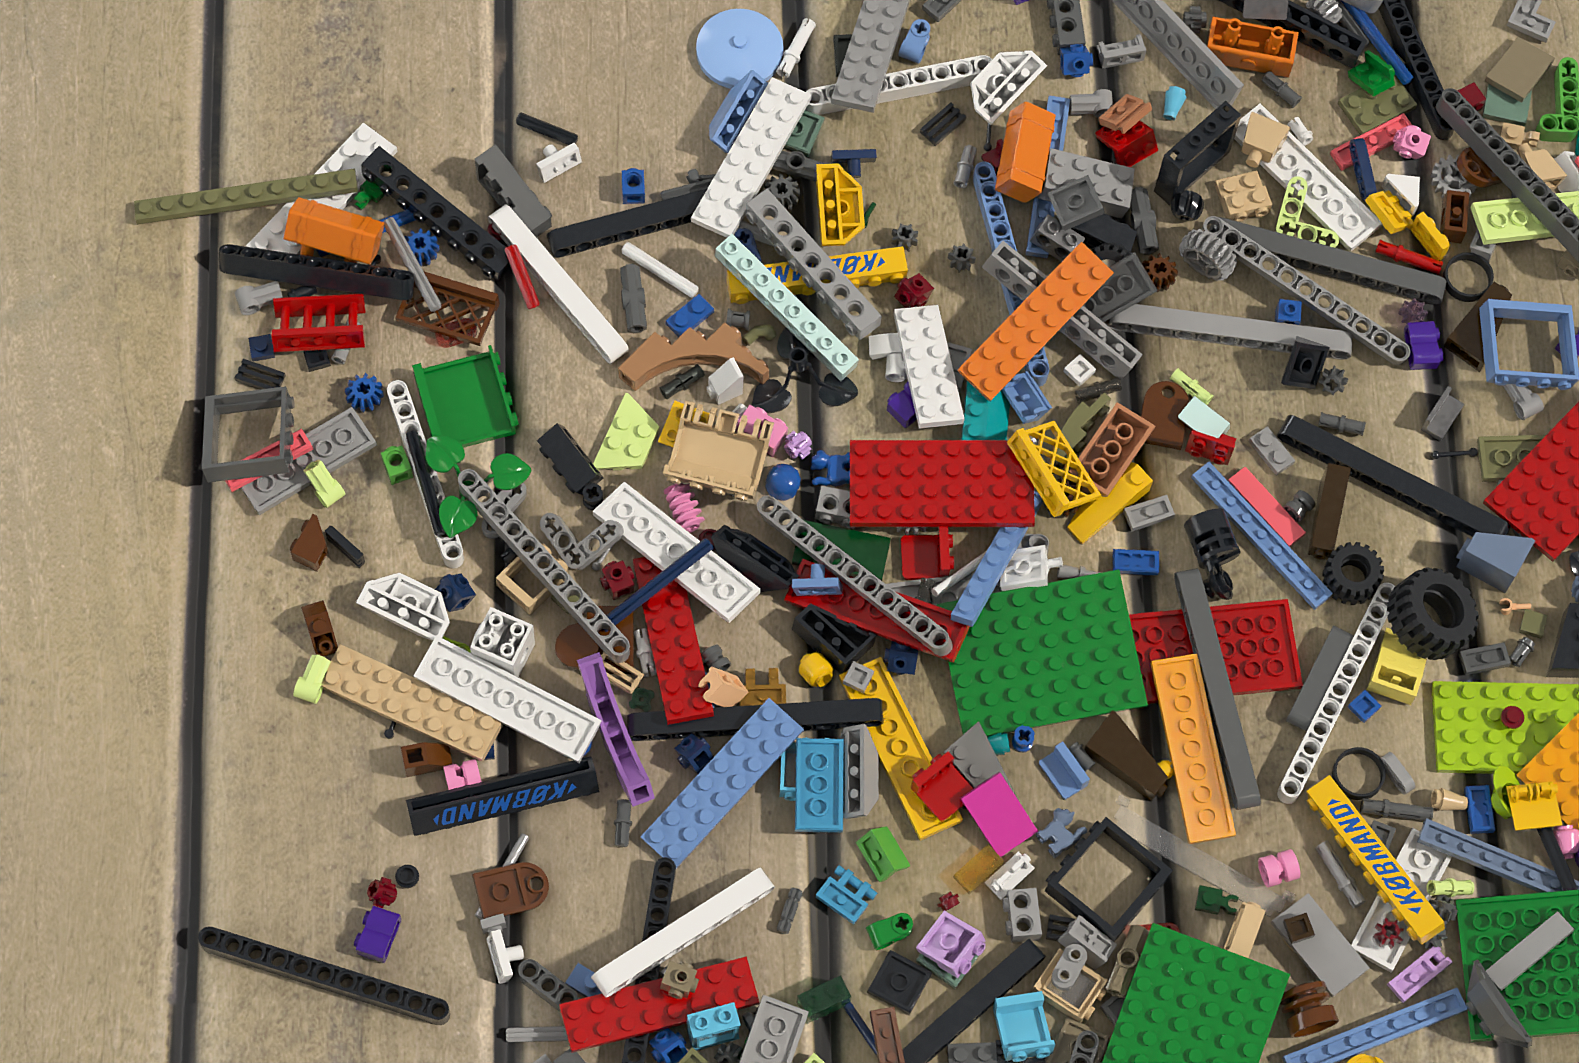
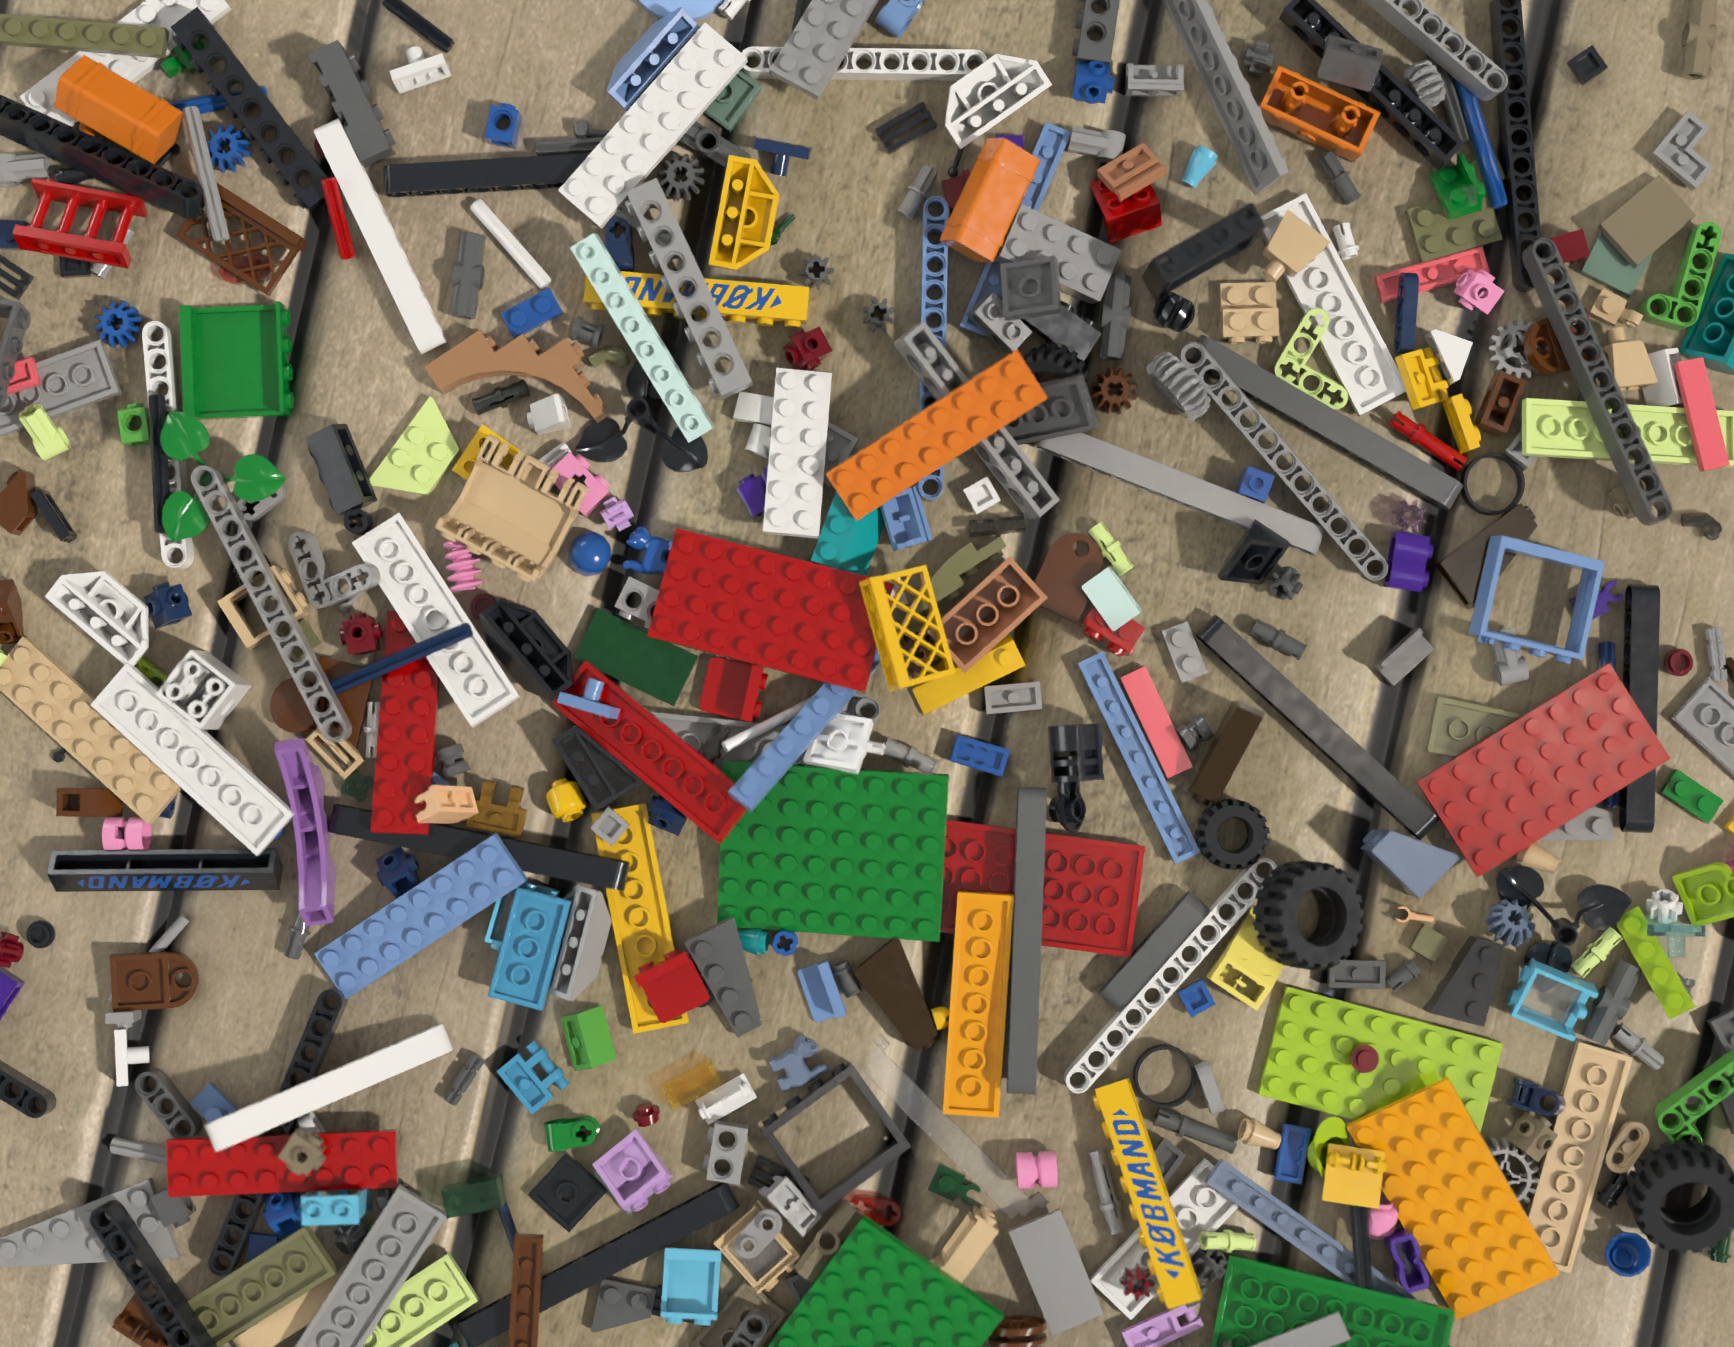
camera: 20 degrees right, 20 degrees up
(861, 581) = (644, 712): light grey beam -> none
(999, 814) = (729, 1030): dark pink tile -> none
(1298, 928) = (1034, 1253): dark brown plate -> none
(1472, 453) = (1425, 710): black hinge -> none

